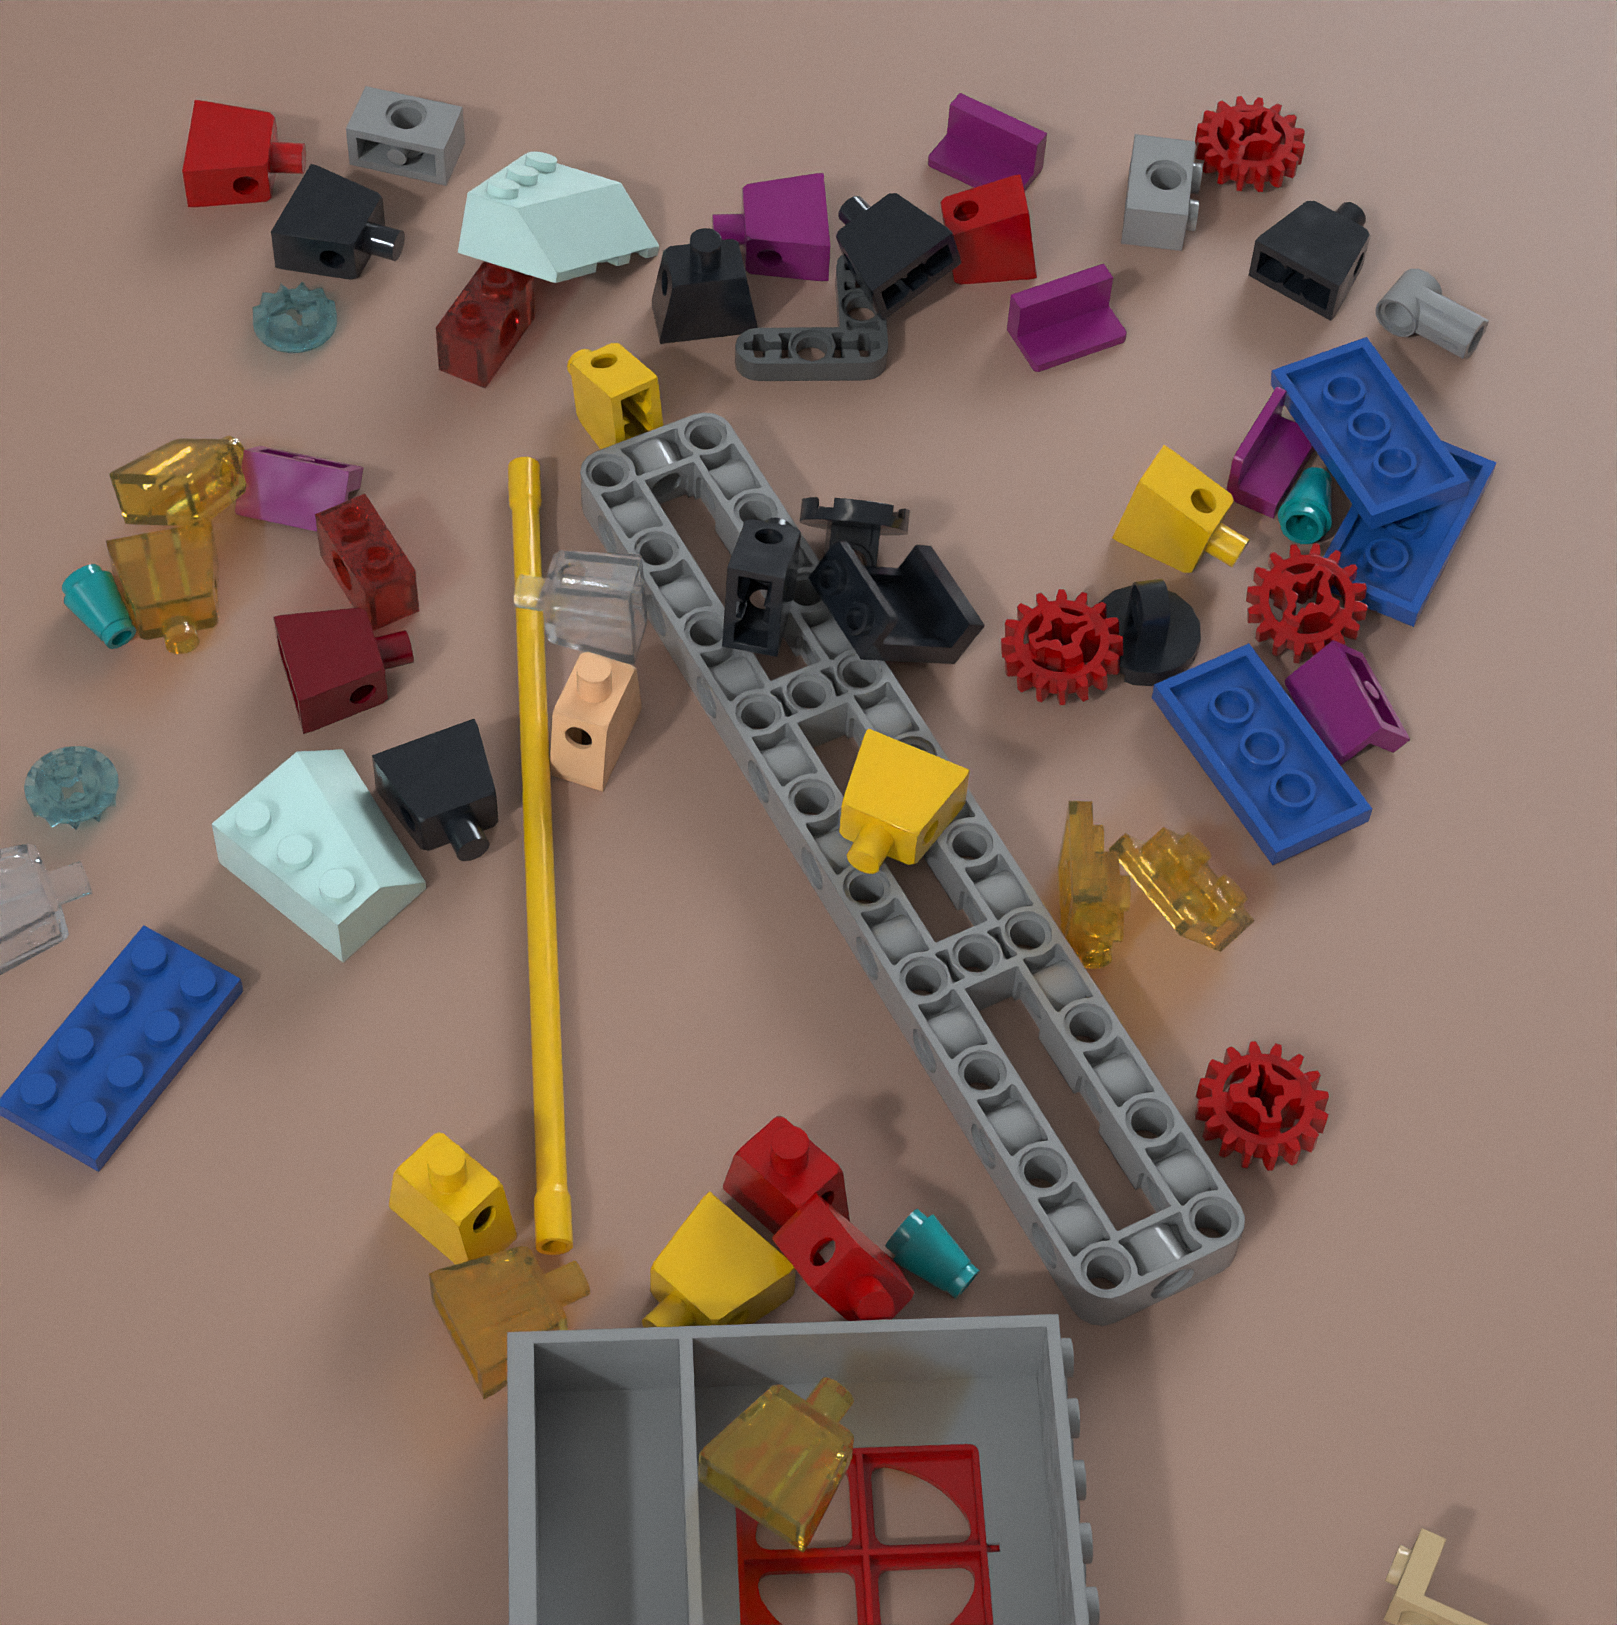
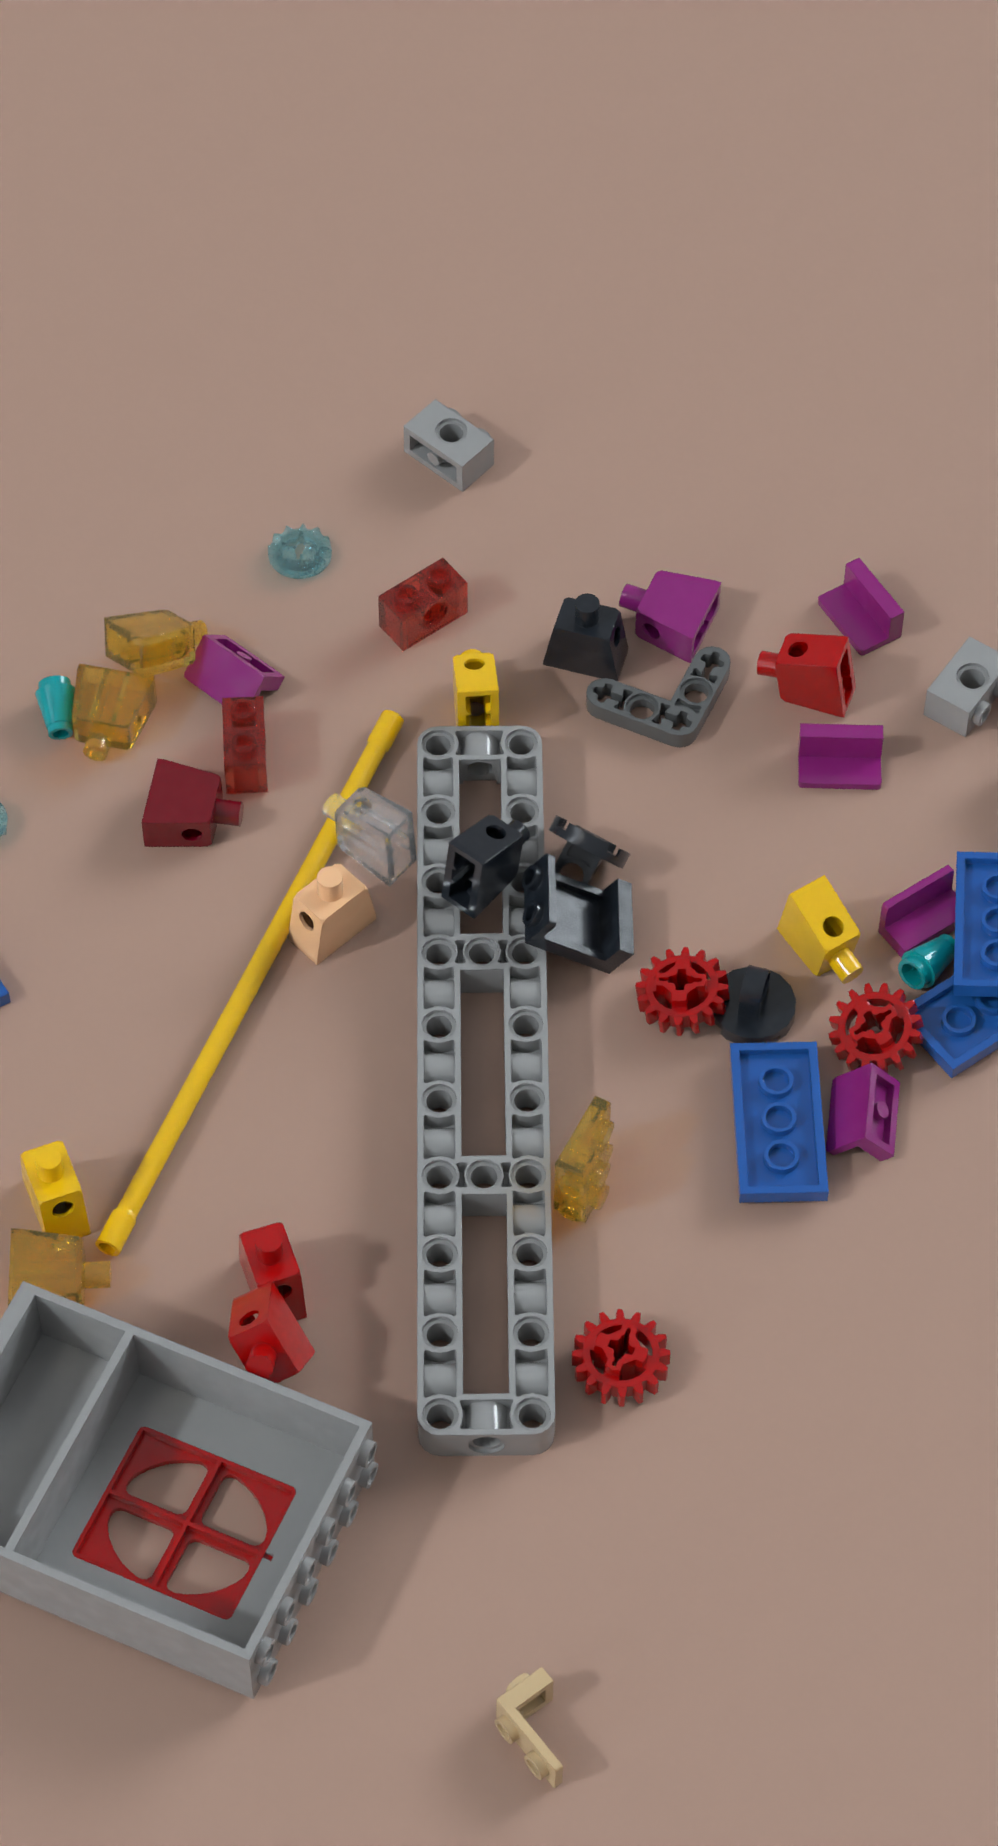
camera: 30 degrees right, 0 degrees up
(235, 156) = (322, 417): red torso -> none
(319, 851) = (108, 927): light aqua wedge -> none
(333, 227) = (359, 495): black torso -> none
(441, 789) = (208, 920): black torso -> none
(552, 221) = (504, 547): light aqua wedge -> none
(717, 1272) = (191, 1307): yellow torso -> none
(783, 1459) = (138, 1429): clear yellow torso -> none
(894, 250) = (730, 660): black torso -> none
(898, 802) = (486, 1050): yellow torso -> none
(931, 1253) = (341, 1355): teal cone -> none
(1184, 887) = (653, 1189): clear yellow plate -> none

